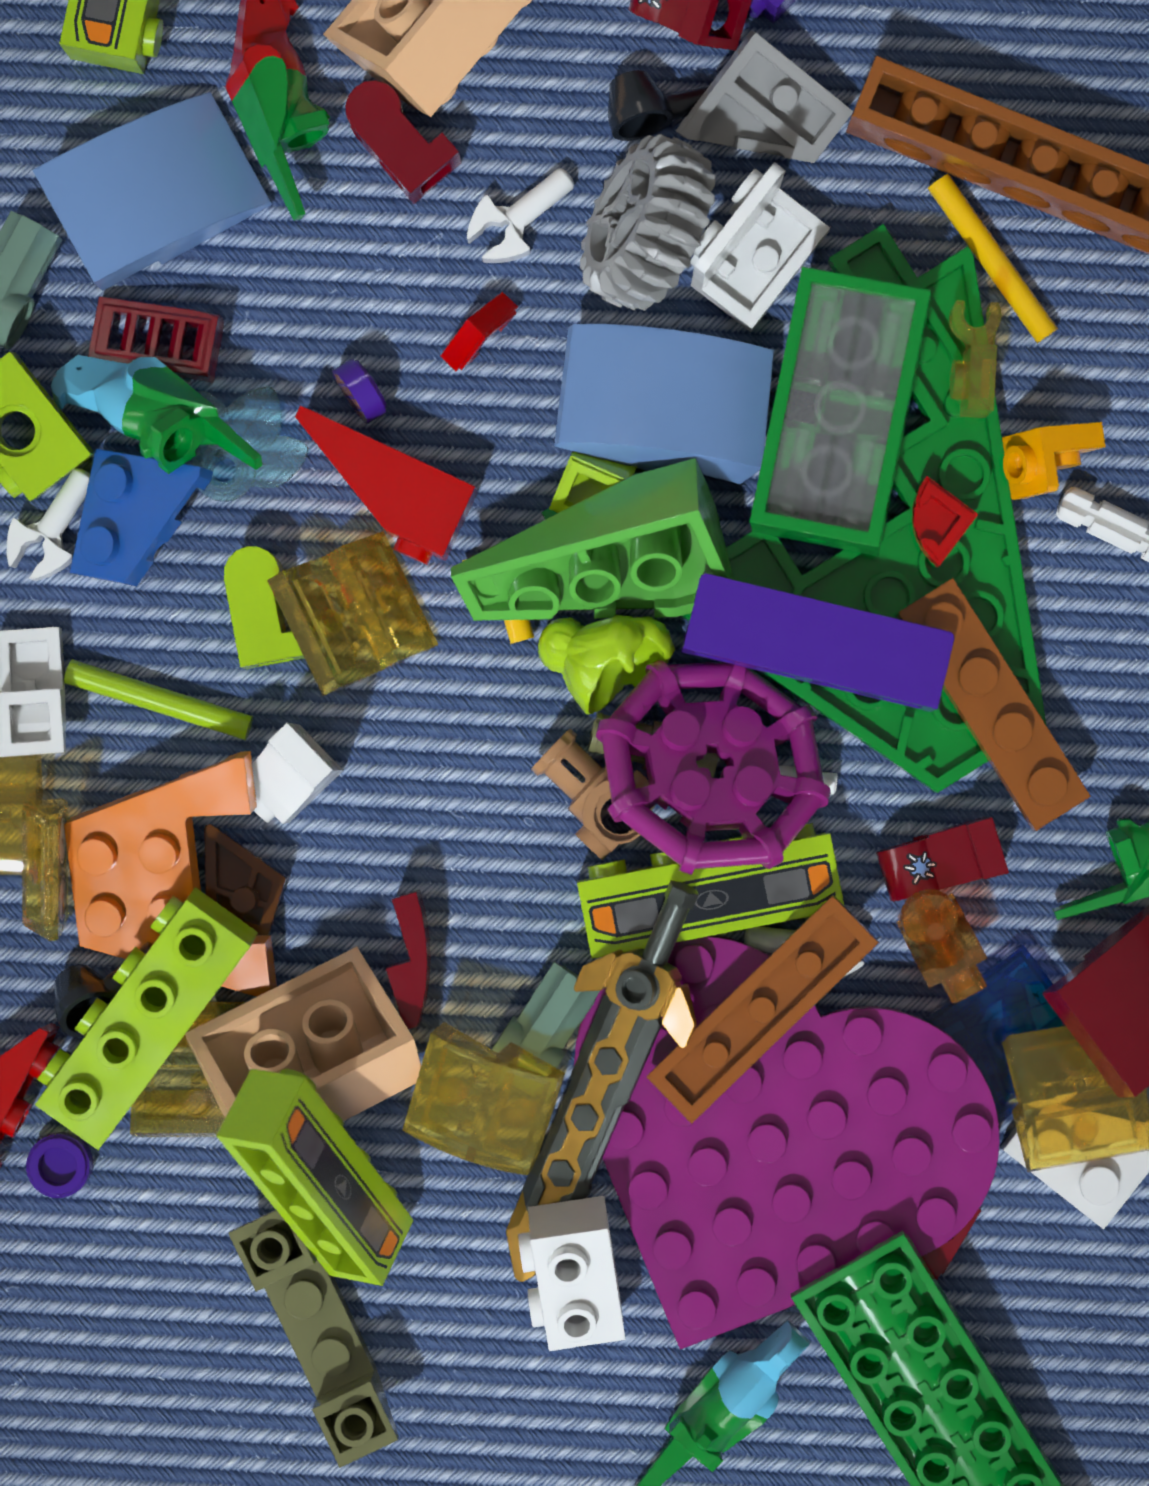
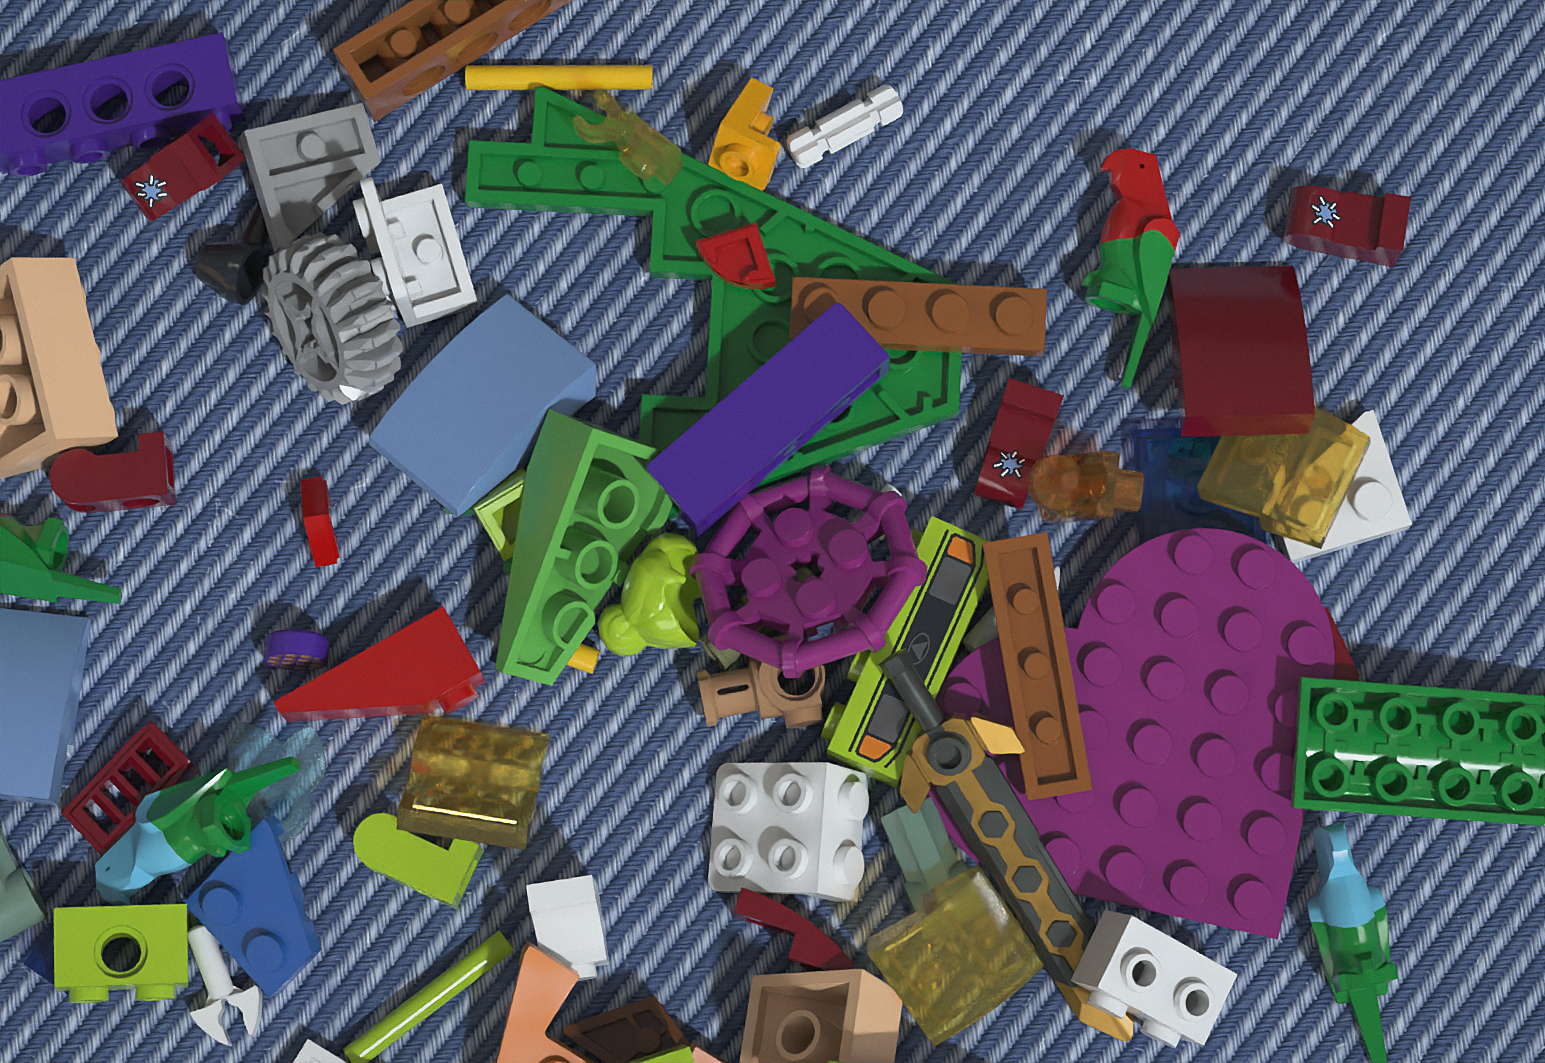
camera: 55 degrees left, 10 degrees down
(492, 893) = (788, 829): none -> white bracket
(517, 216) = (249, 426): white bar -> none
(840, 411) = (596, 270): clear brick -> none

